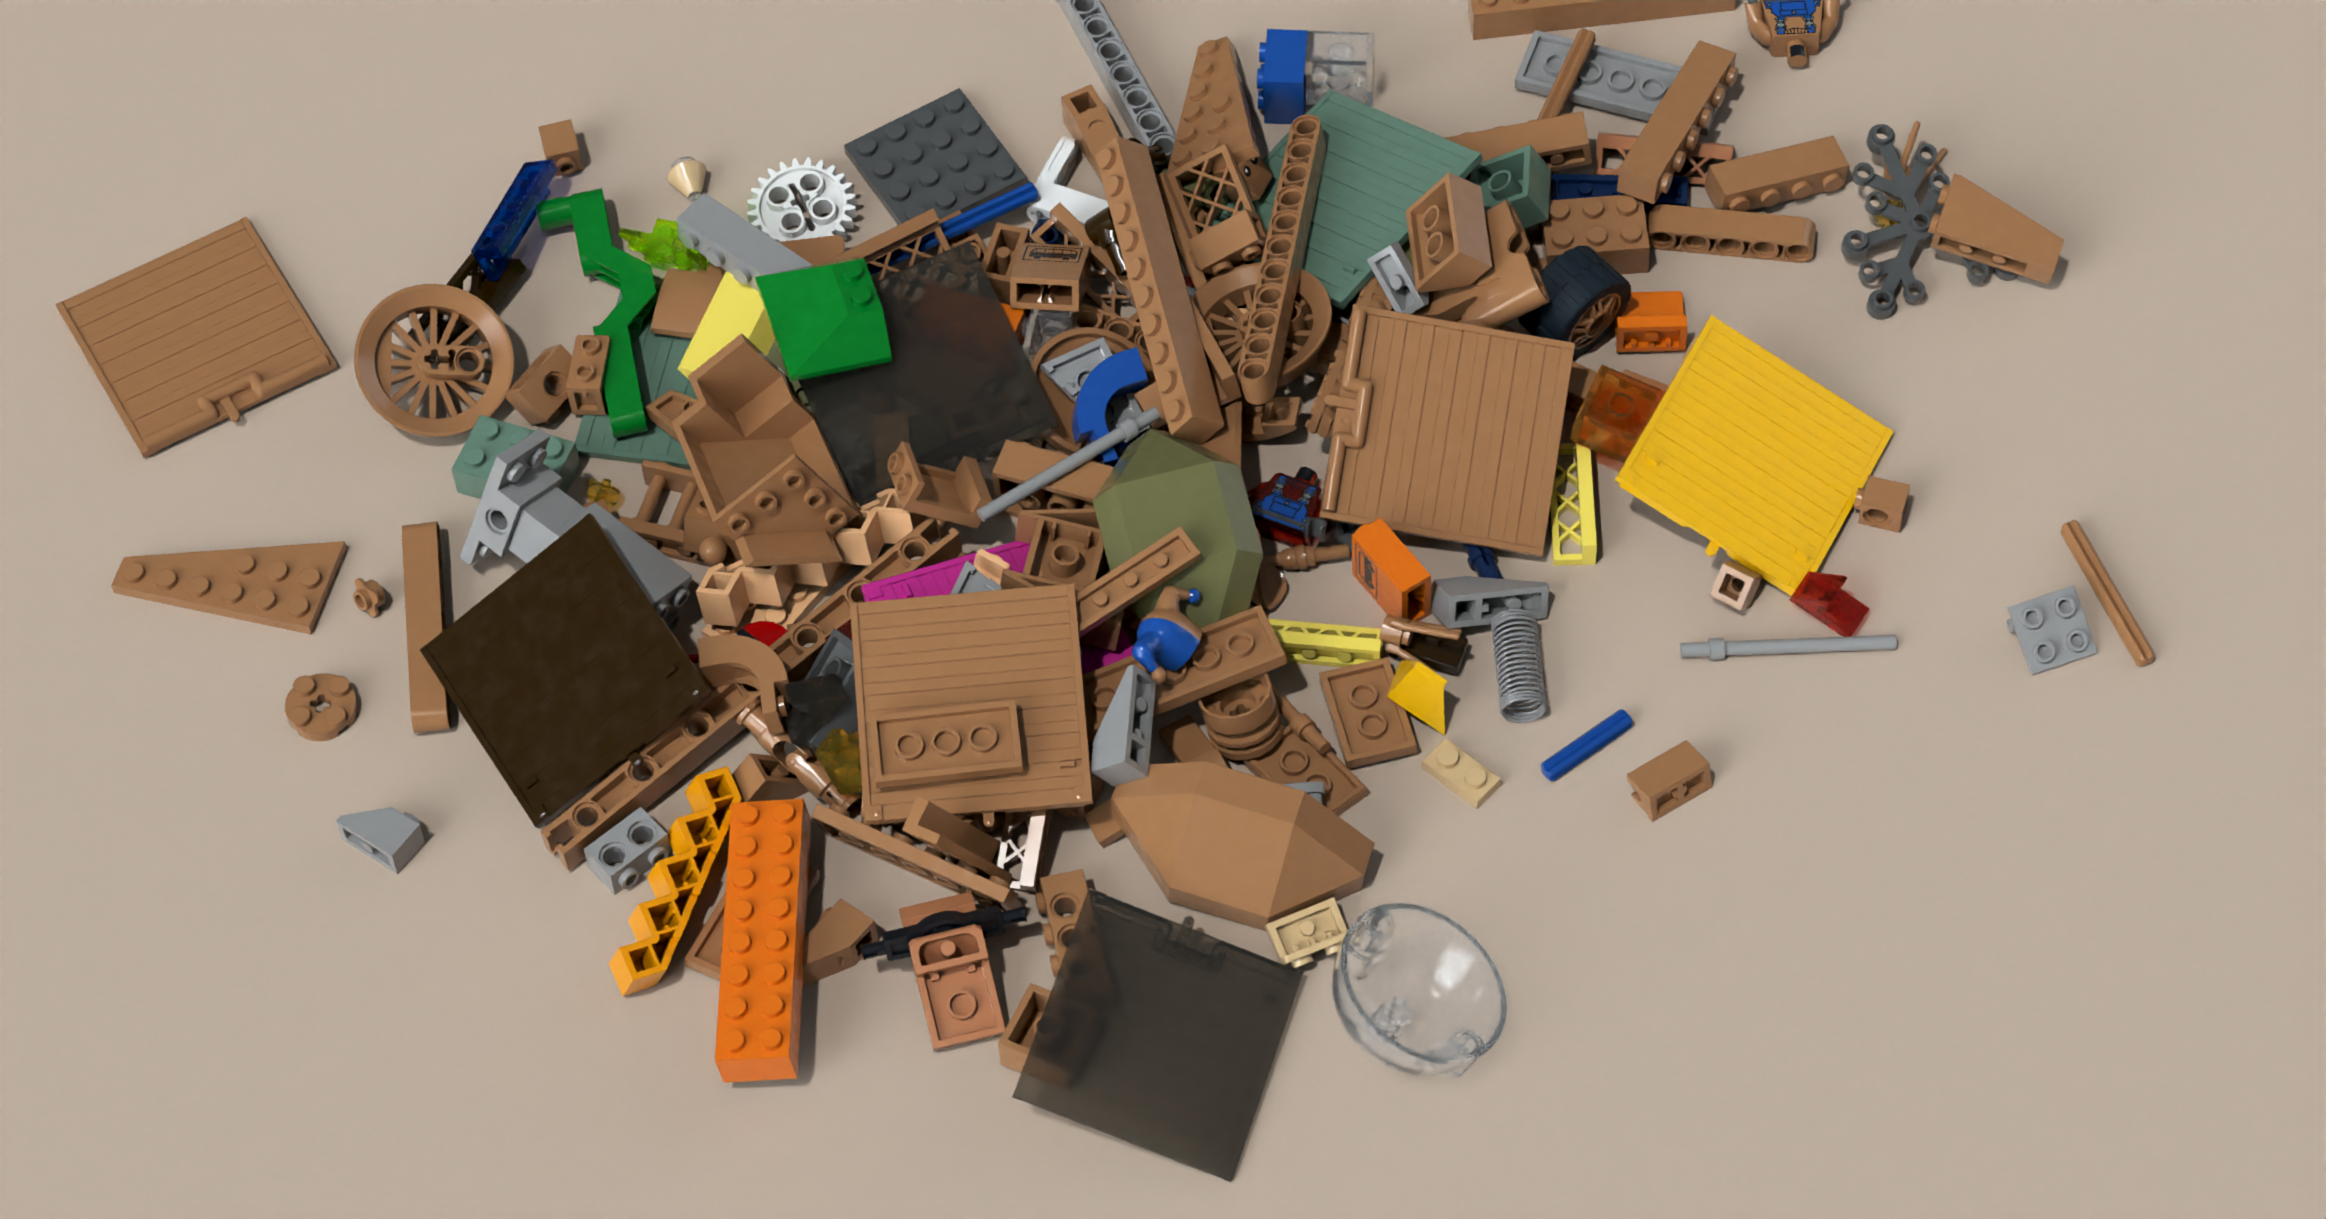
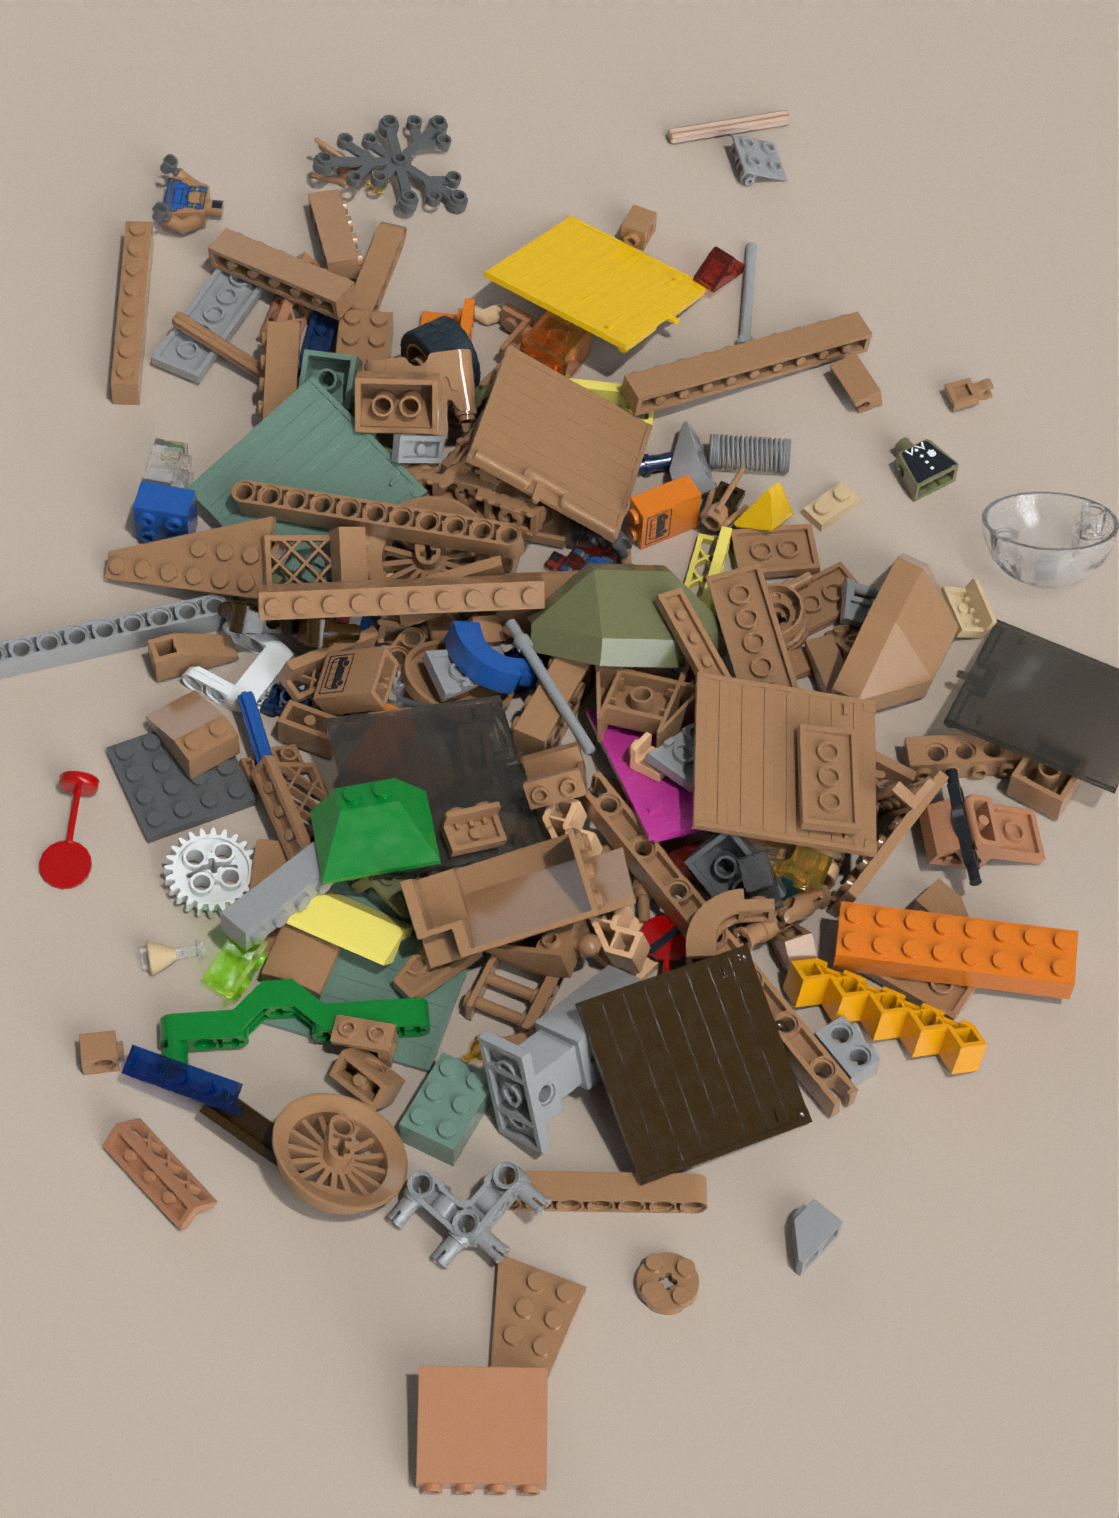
camera: 90 degrees left, 0 degrees up
(127, 540) = (482, 1429): none -> nougat panel
(195, 337) = (240, 1375): medium nougat door -> none
(368, 596) = (562, 1235): medium nougat plate -> none
(381, 496) = (485, 1207): none -> light grey pin
(415, 218) = (156, 1174): none -> nougat fence
(809, 79) = (68, 862): none -> red piece
(851, 415) = (472, 828): none -> medium nougat bracket
(976, 154) = (195, 733): none -> medium nougat slope
(1125, 732) = (823, 673): light grey slope -> none
(1167, 634) = (735, 633): blue piece -> none
(1539, 867) = (923, 467): none -> torso
(1586, 745) = (817, 429): blue axle -> none
(1663, 643) = (745, 363): none -> medium nougat brick
(1685, 910) = (966, 394): none -> medium nougat plate
(1727, 590) = (698, 318): medium nougat plate -> none
(1992, 232) = (423, 118): medium nougat slope -> none

